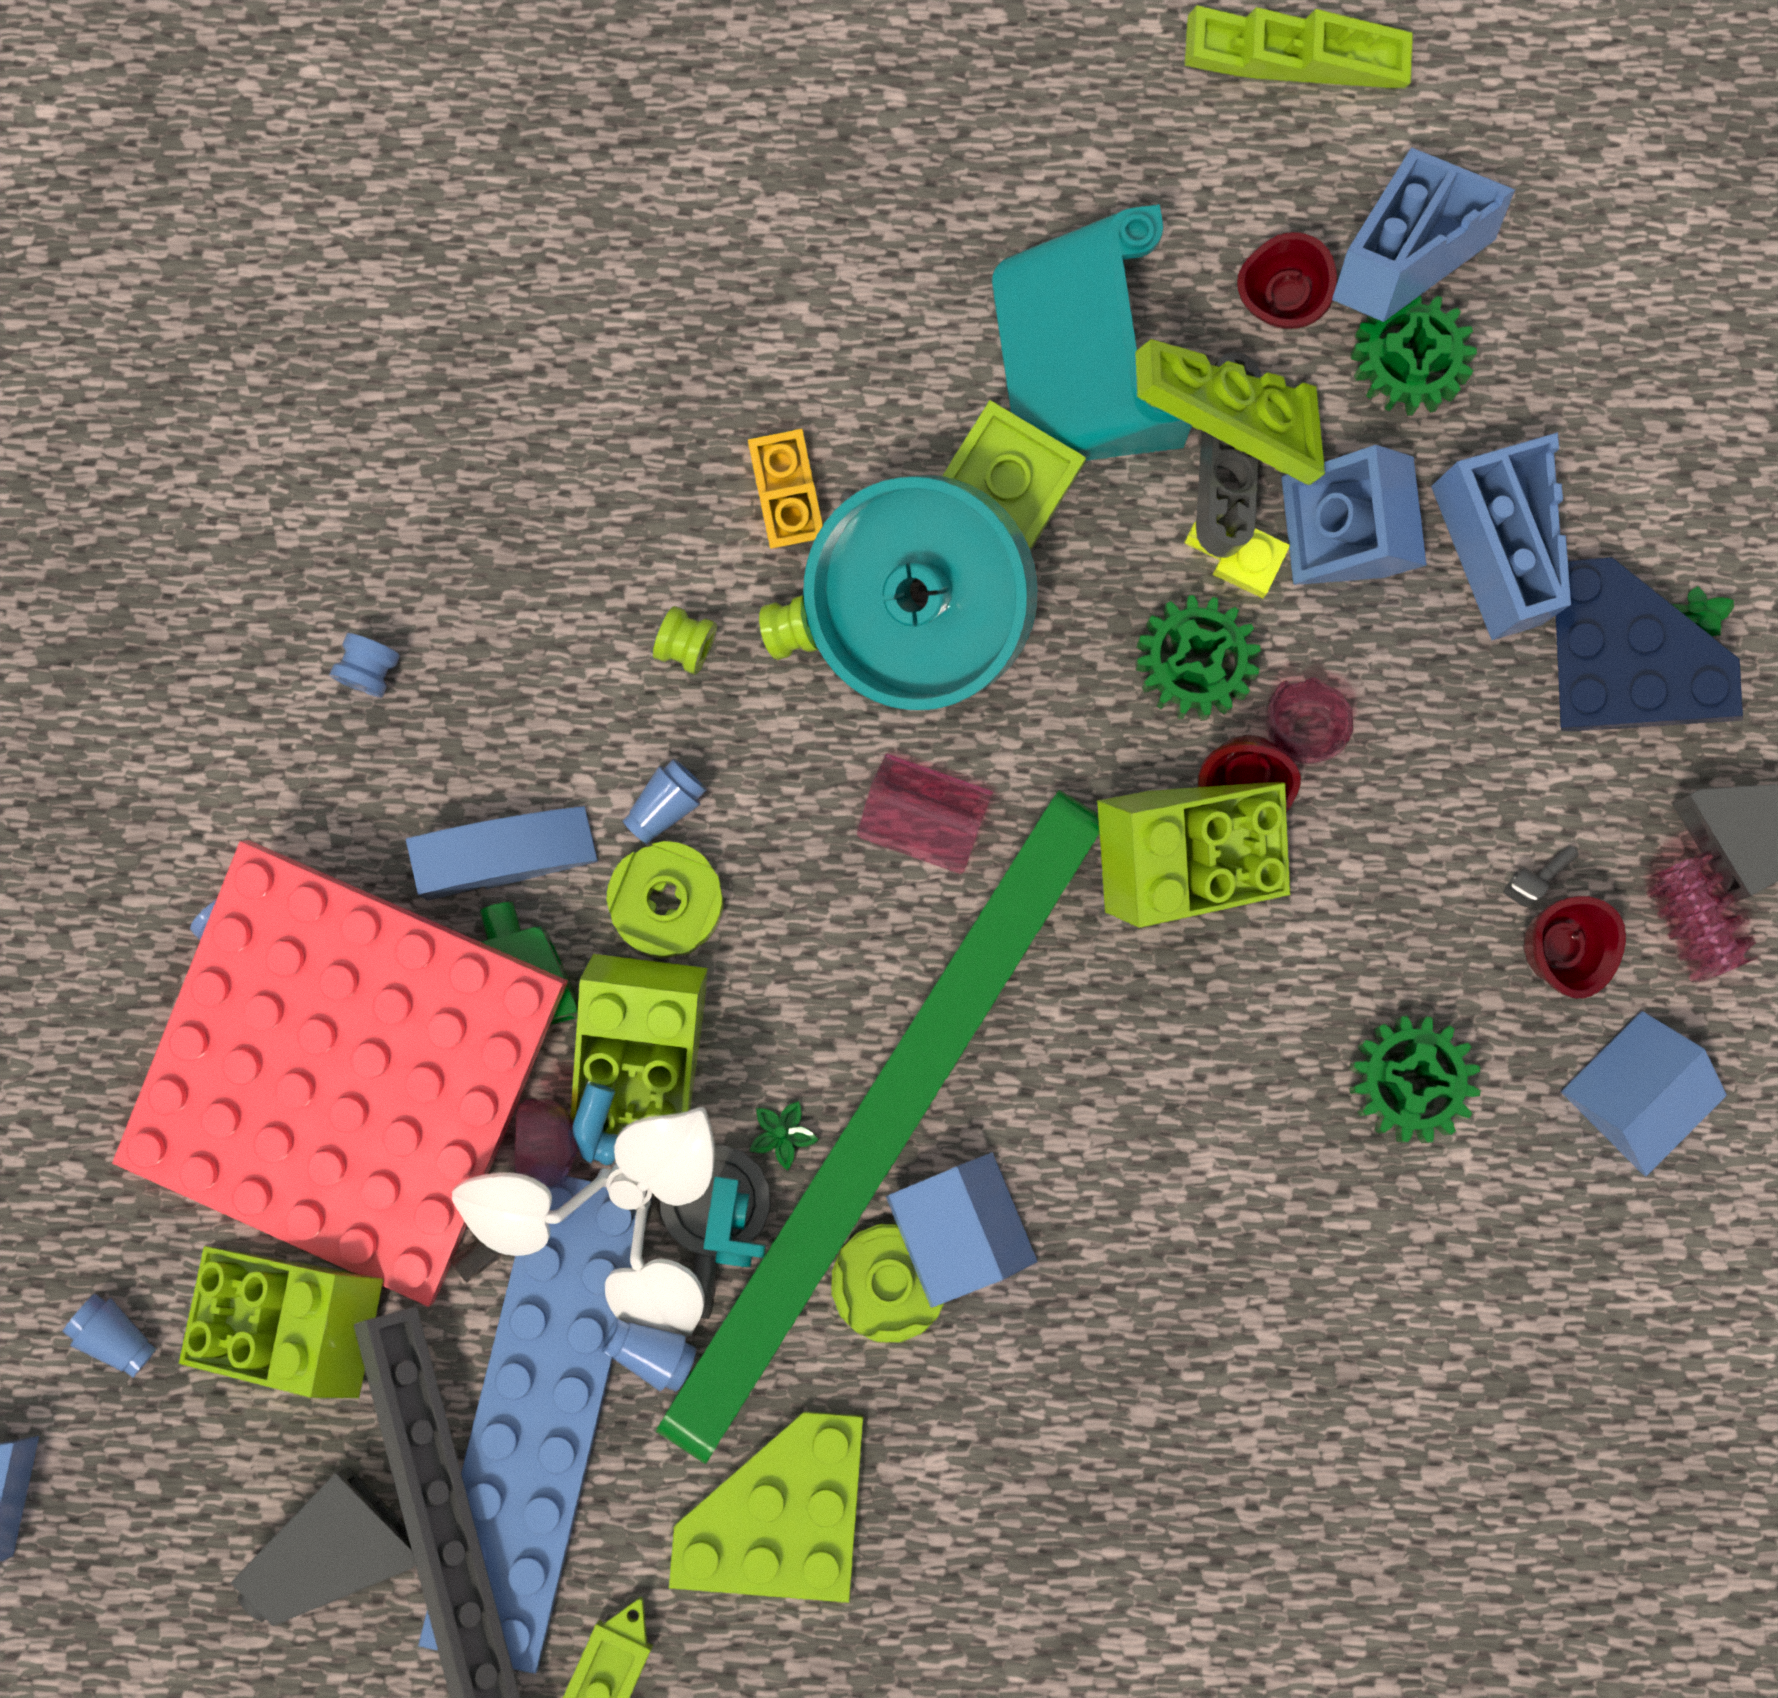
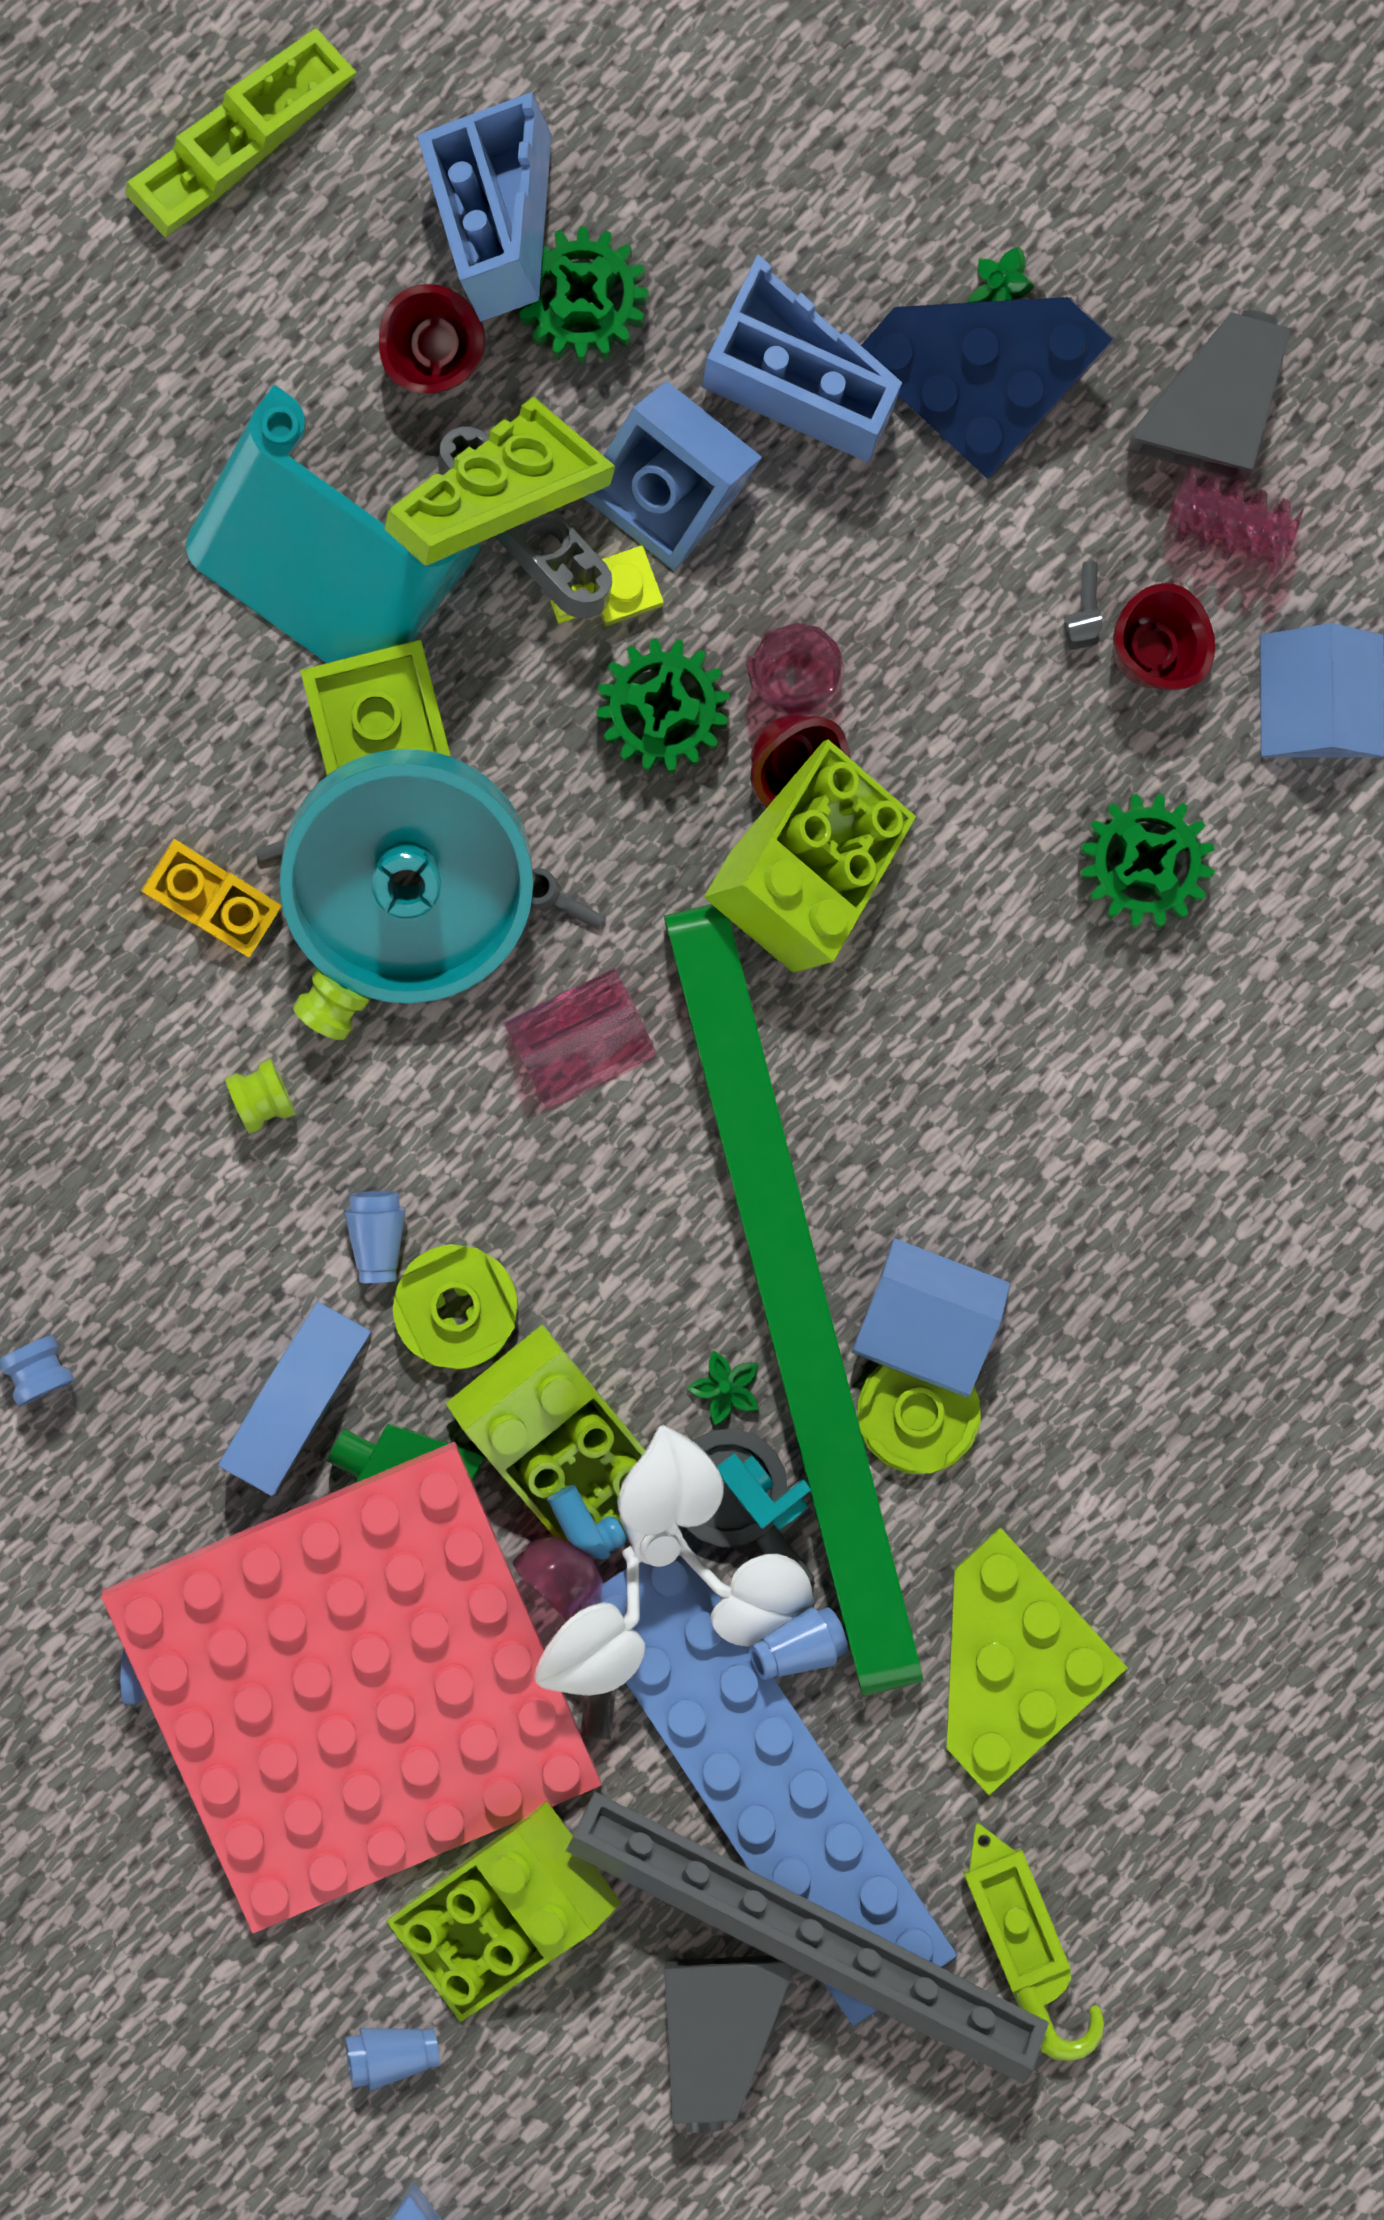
camera: 50 degrees left, 5 degrees up
(1004, 716) = (564, 902): none -> dark grey hand

